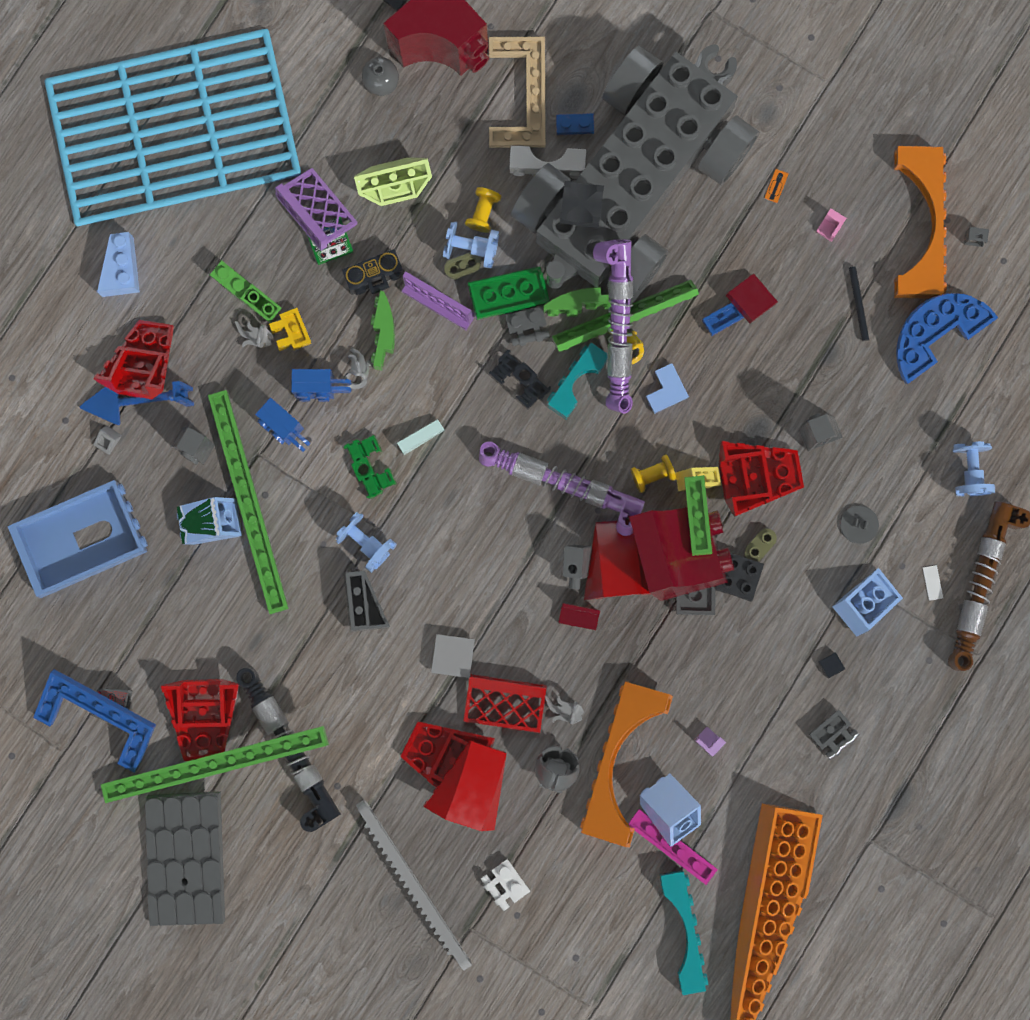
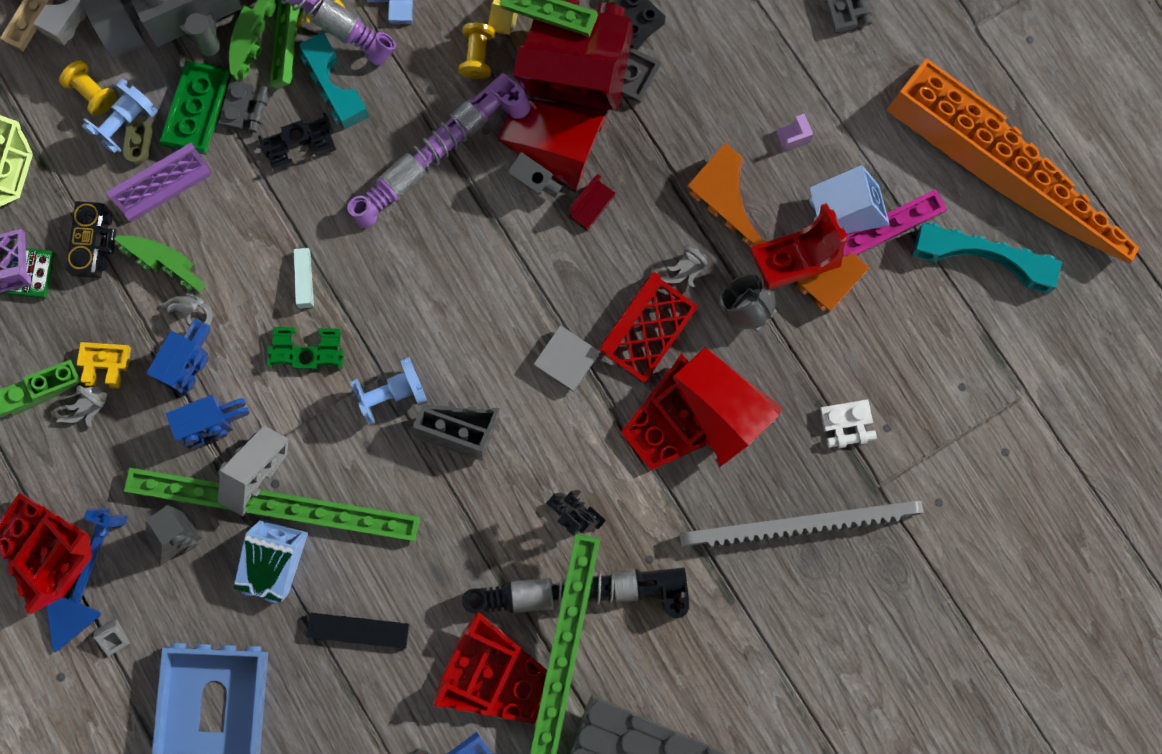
camera: 70 degrees left, 5 degrees down
(190, 606) = (358, 630): none -> black tile
(264, 474) = (249, 467): none -> light grey wedge
(335, 724) = (579, 517): none -> black piece
(608, 790) = (802, 253): none -> red bracket

